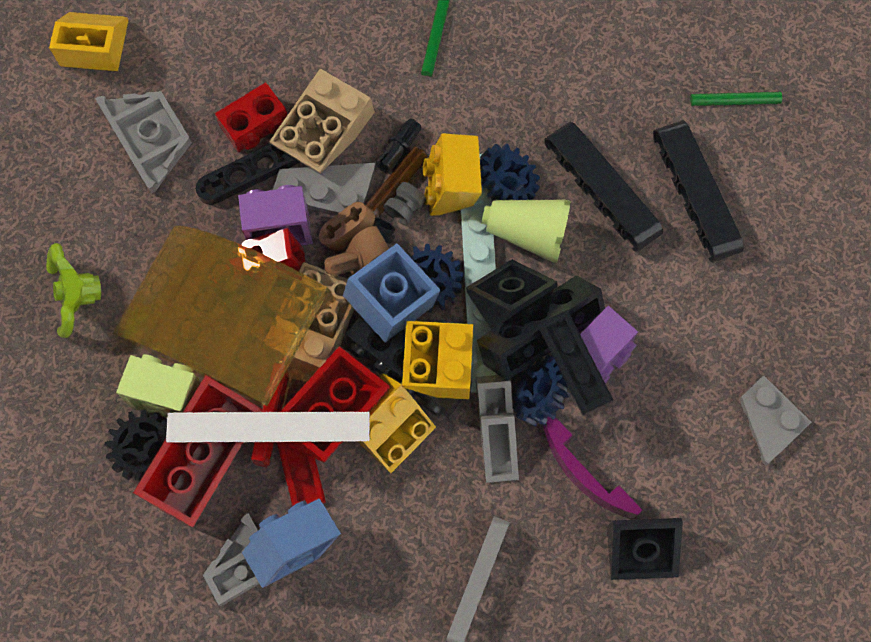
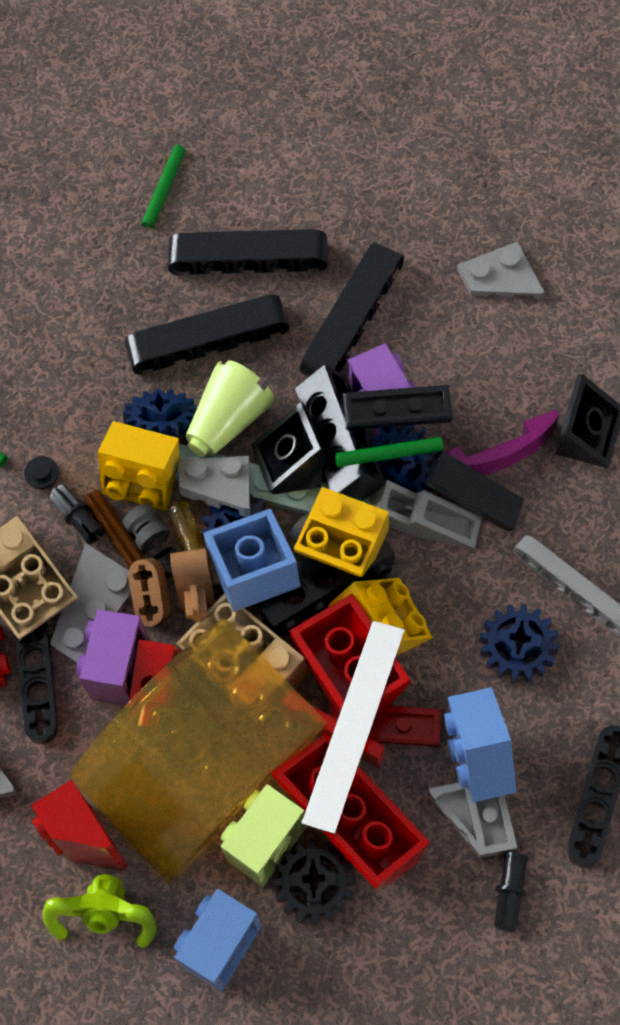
camera: 65 degrees left, 5 degrees down
(65, 384) = (217, 939): none -> medium blue brick
(118, 245) = (74, 828): none -> red slope
(181, 612) = (510, 891): none -> black axle
(417, 234) = (187, 532): none -> clear yellow axle
(421, 545) = (534, 644): none -> dark blue gear
(426, 105) = (41, 472): none -> black plate
(461, 243) = (217, 481): none -> light grey wing
(528, 370) = (389, 451): none -> green bar
(532, 462) = (474, 491): none -> black tile
(676, 298) = (352, 310): none -> black beam

